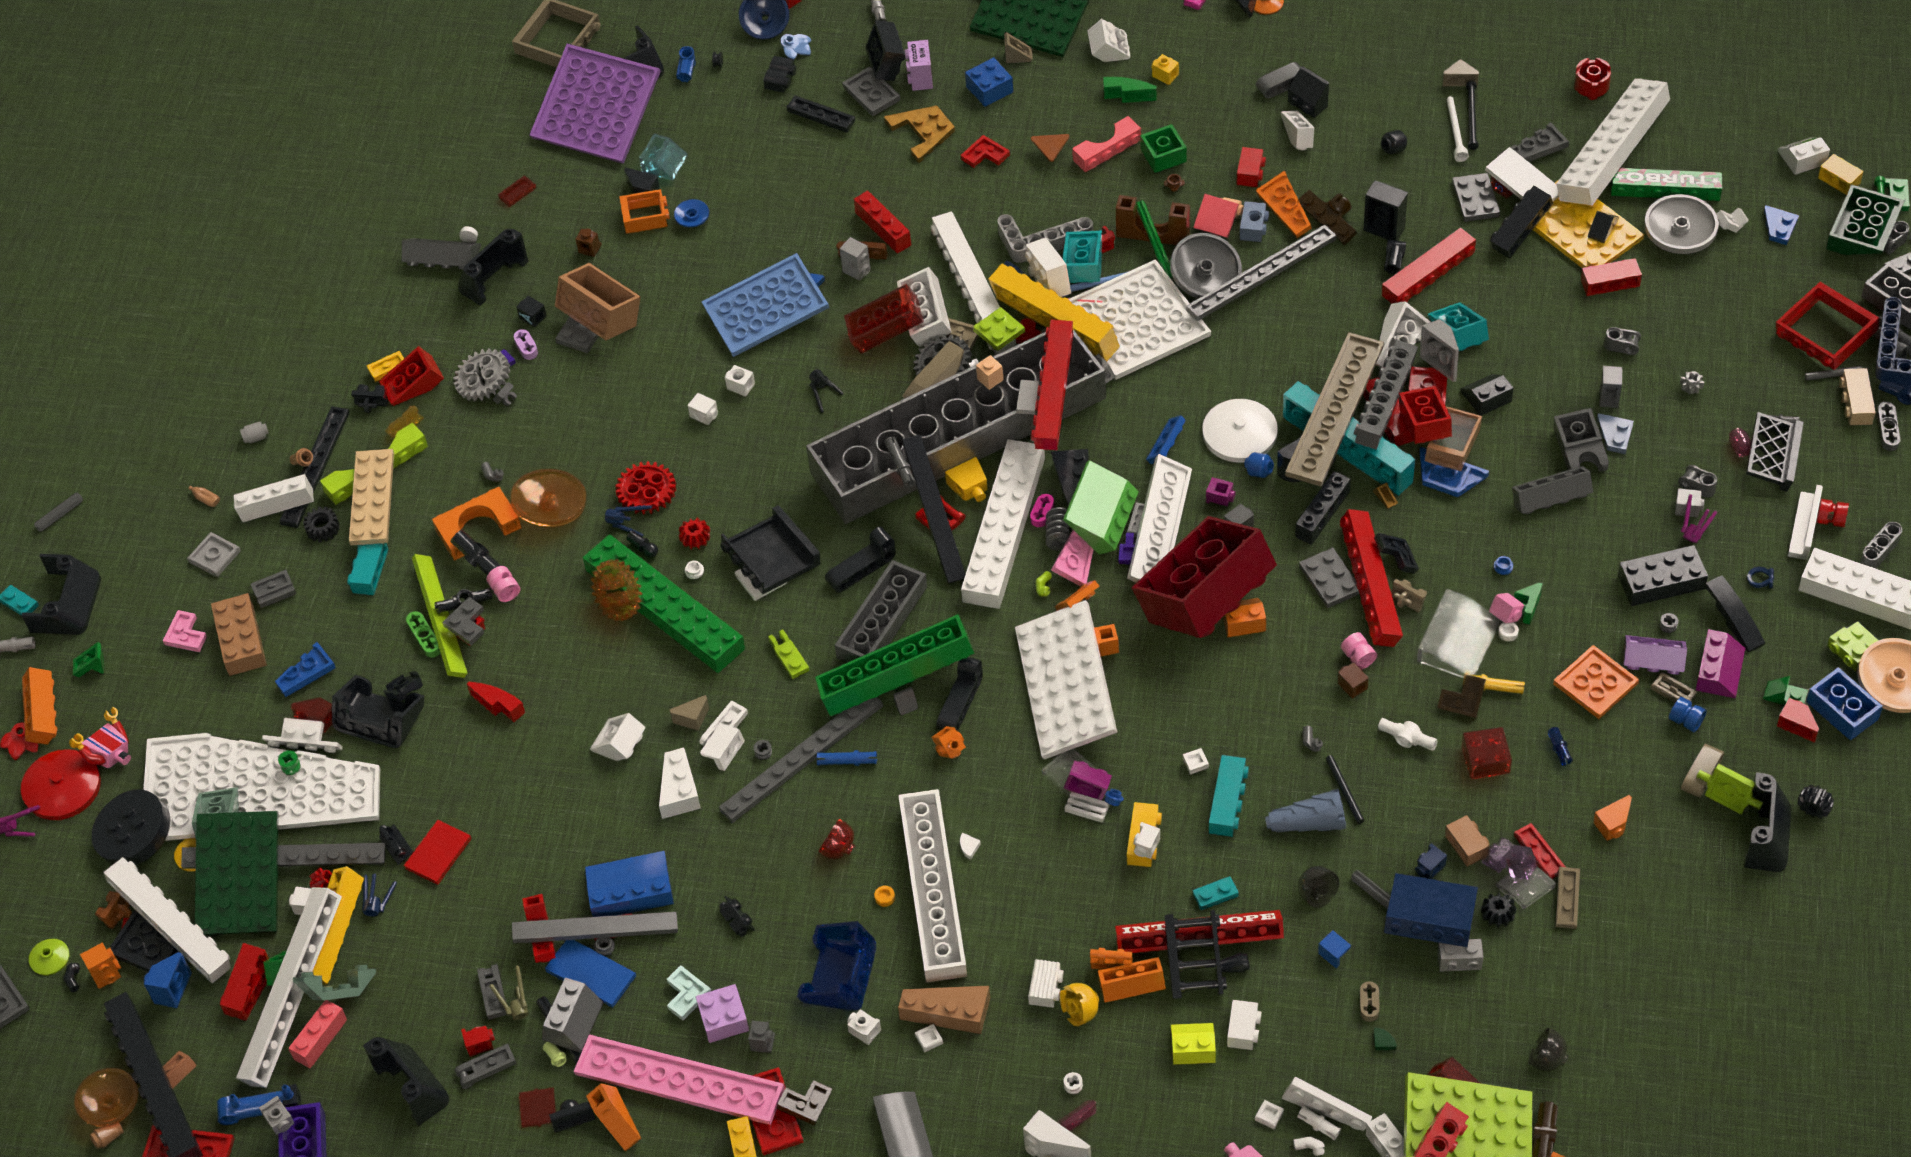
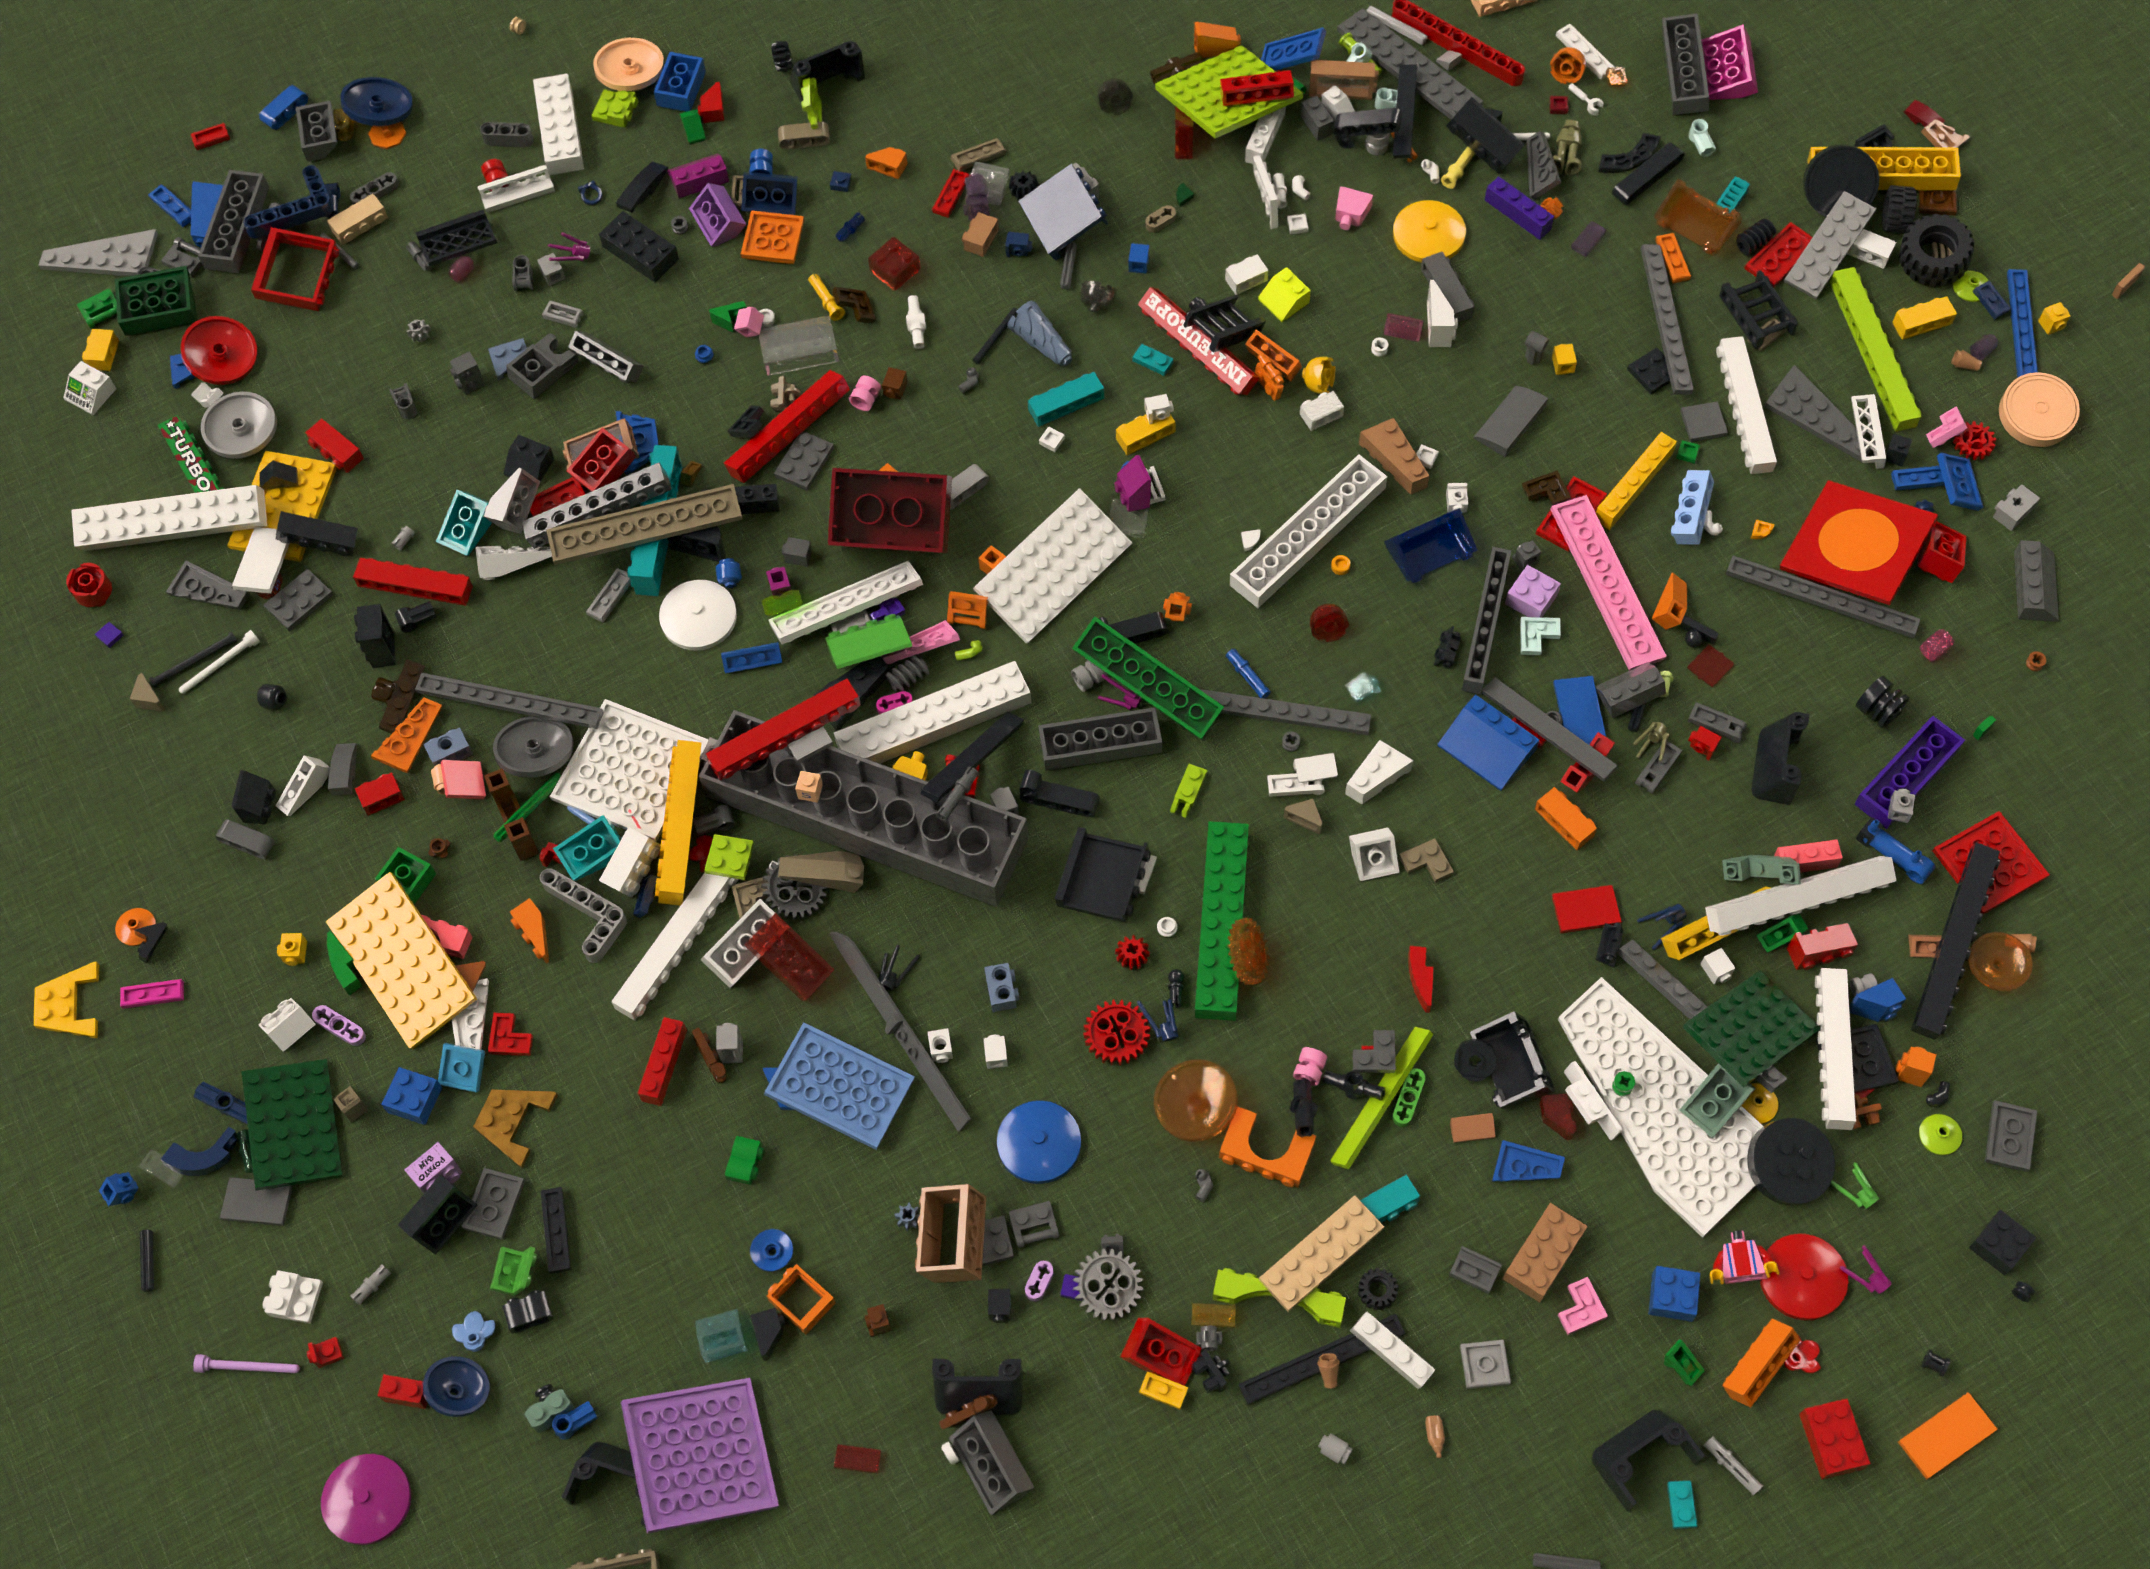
camera: 130 degrees left, 10 degrees up
(63, 864) = (1866, 1196): none -> bright green plant
(133, 690) = (1674, 1293): none -> blue brick
(191, 990) = (1861, 984): none -> light grey wheel
(320, 878) = (1692, 968): red gear -> none
(364, 657) = (1472, 1127): none -> nougat slope
(390, 408) = (1209, 1338): none -> dark grey gear
(476, 245) = (970, 1409): none -> reddish brown hinge
(512, 887) = (1566, 818): none -> orange brick
(569, 367) = (1031, 1218): none -> dark grey plate
(581, 778) = (1428, 855): none -> dark tan plate
(617, 400) = (1039, 1142): none -> blue dish
(643, 292) = (907, 1210): none -> sand blue gear
(703, 54) = (543, 1413): none -> sand green brick
(730, 957) = (1486, 620): none -> dark grey brick
(747, 439) = (1000, 987): none -> sand blue brick
(758, 831) = (1363, 686): none -> clear light blue bracket
(767, 231) = (744, 1160): none -> green brick
(781, 362) = (898, 1025): none -> dark grey piece
(813, 77) = (513, 1270): none -> bright green bracket
(891, 524) = (1003, 799): none -> light grey brick
(984, 115) = (461, 1067): none -> dark azure tile
(1015, 136) = (469, 1023): none -> white wing
(1055, 202) = (531, 922): none -> orange slope
(1070, 71) = (335, 1017): none -> lavender beam
(1096, 115) = (401, 960): none -> yellow plate
(1196, 480) = (788, 600): none -> clear neon green brick
(1203, 668) = (967, 484): none -> light grey beam
(1292, 155) = (342, 769): none -> dark grey slope
(1302, 373) = (609, 595): none -> light grey tile
(1480, 284) = (403, 537): none -> light grey pin
(1539, 78) = (109, 634): none -> dark purple tile
(1624, 772) = (840, 181): none -> dark blue plate
(1635, 494) = (561, 316): none -> light grey tile
(1649, 702) = (769, 193): none -> dark blue slope
(1774, 242) = (218, 350): none -> red dish

